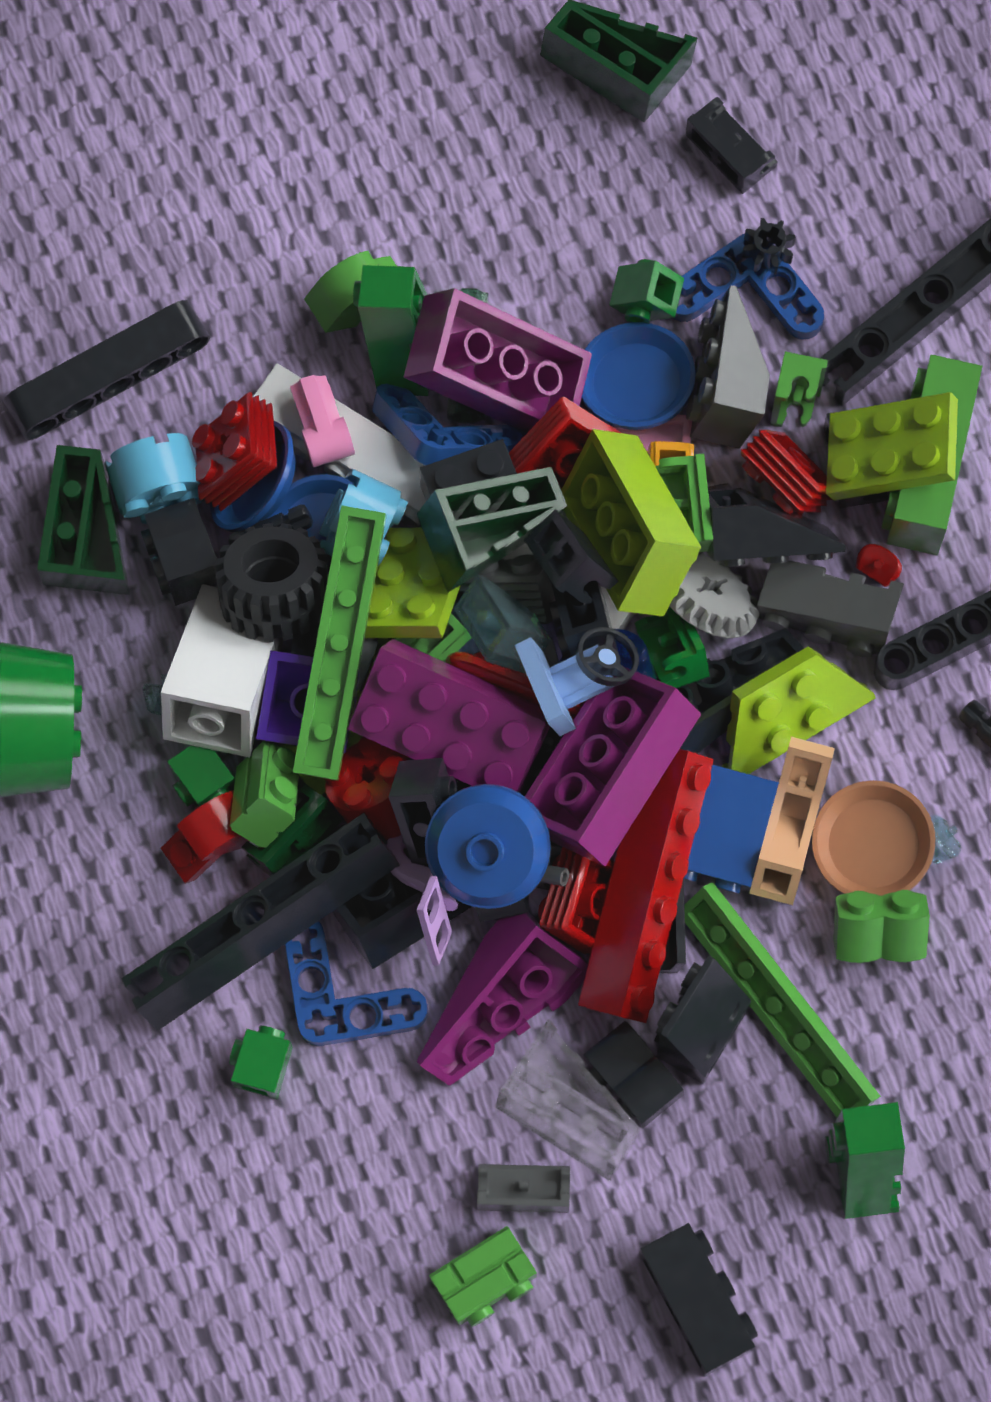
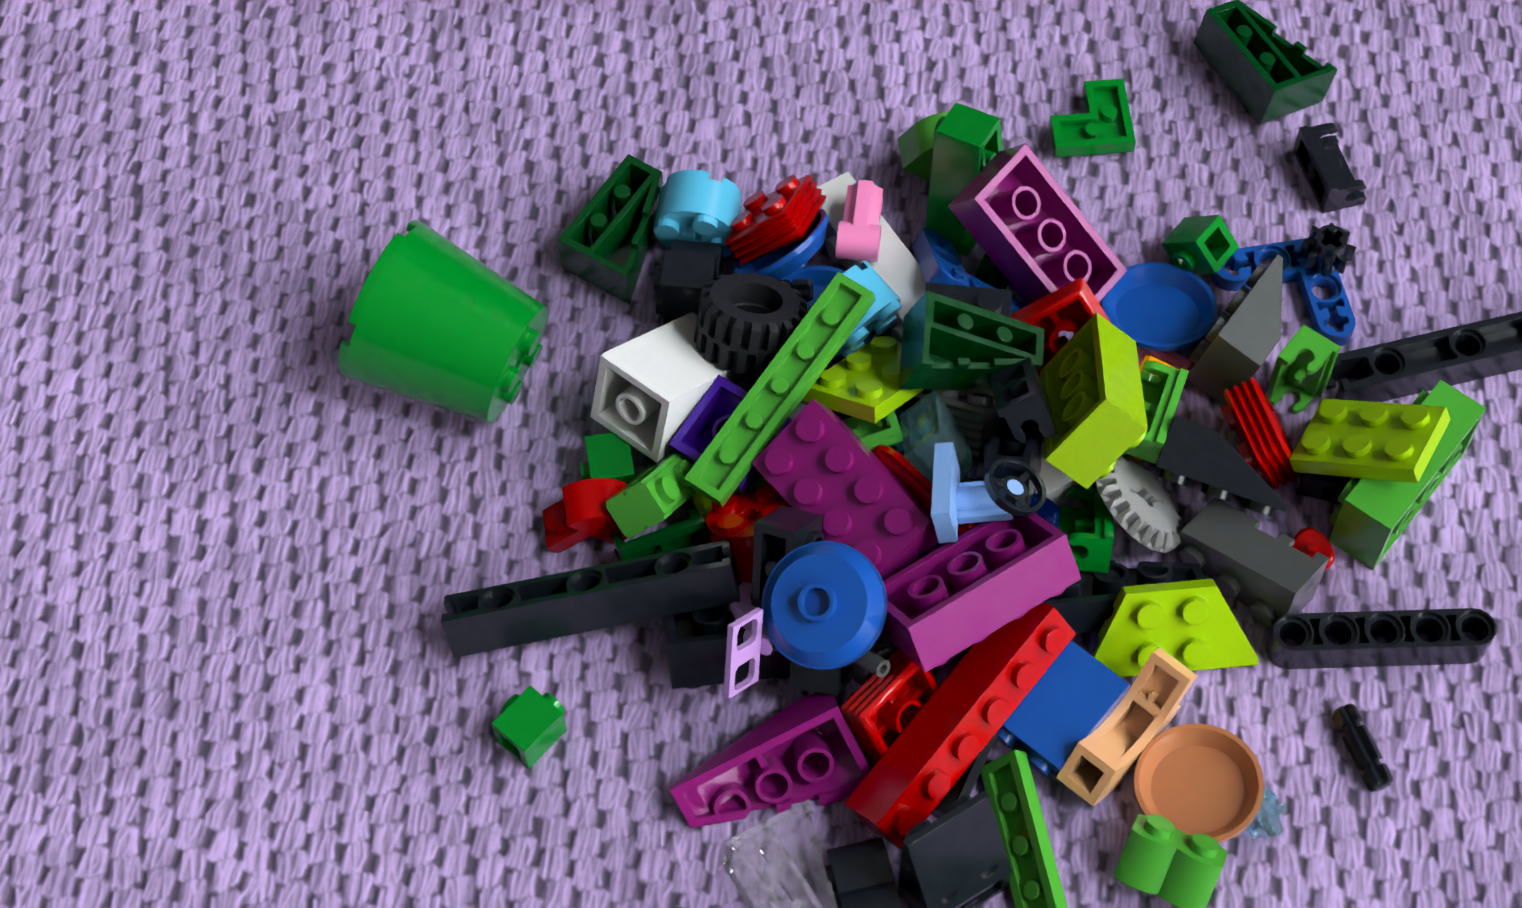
camera: 25 degrees right, 15 degrees down
(106, 369) = (705, 127): black beam -> none
(325, 1003) = (616, 703): blue beam -> none
(496, 196) = (1100, 130): none -> green plate

